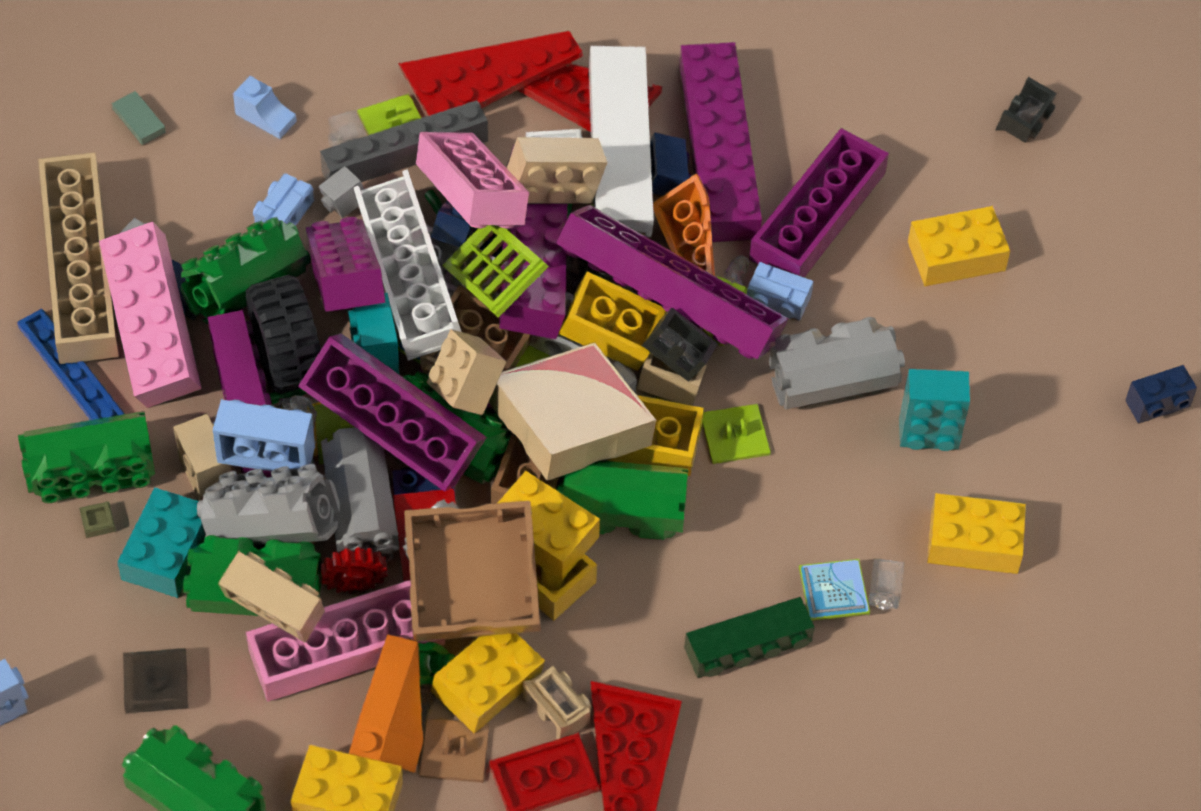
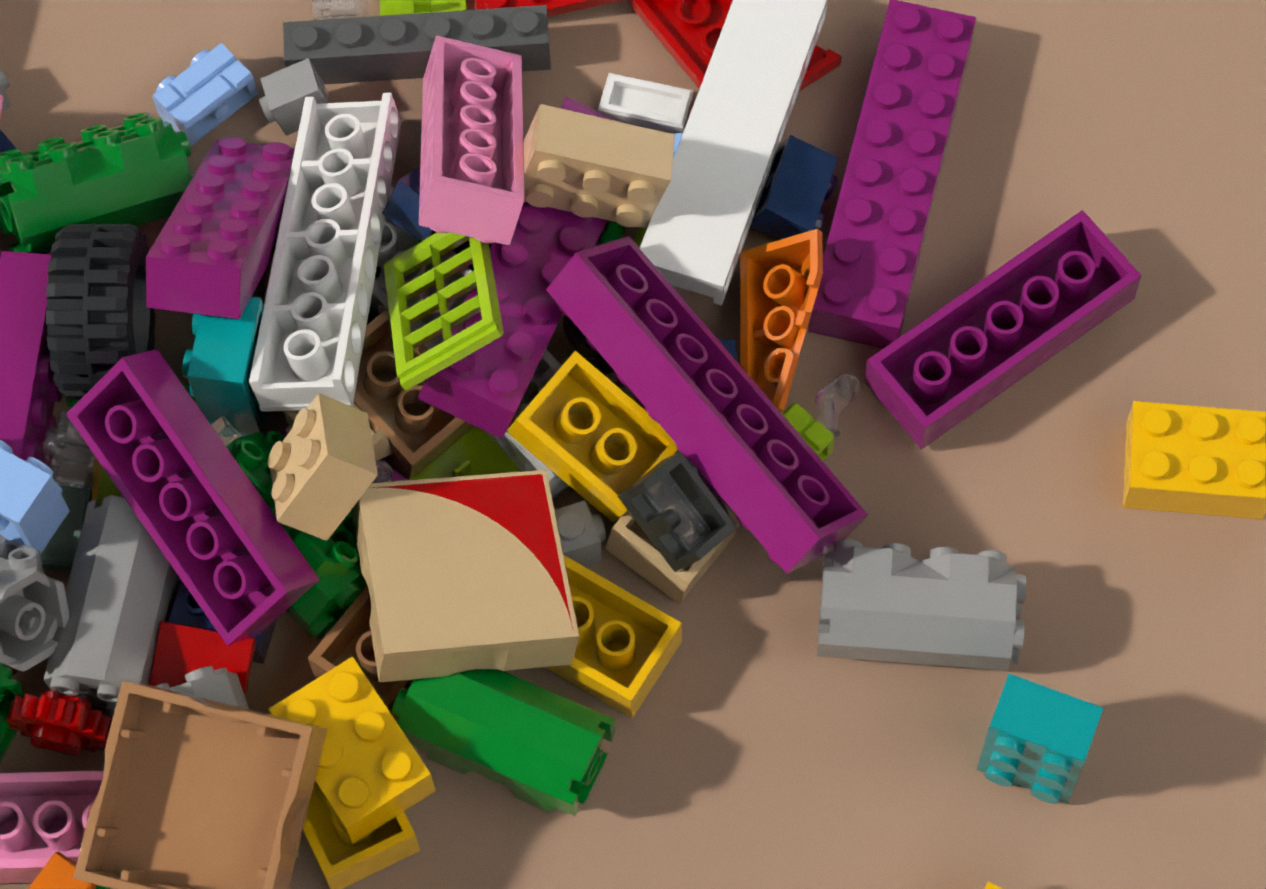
camera: 25 degrees right, 10 degrees up
(735, 434) = (729, 667): lime piece -> none
(780, 290) = (886, 453): light blue brick -> none

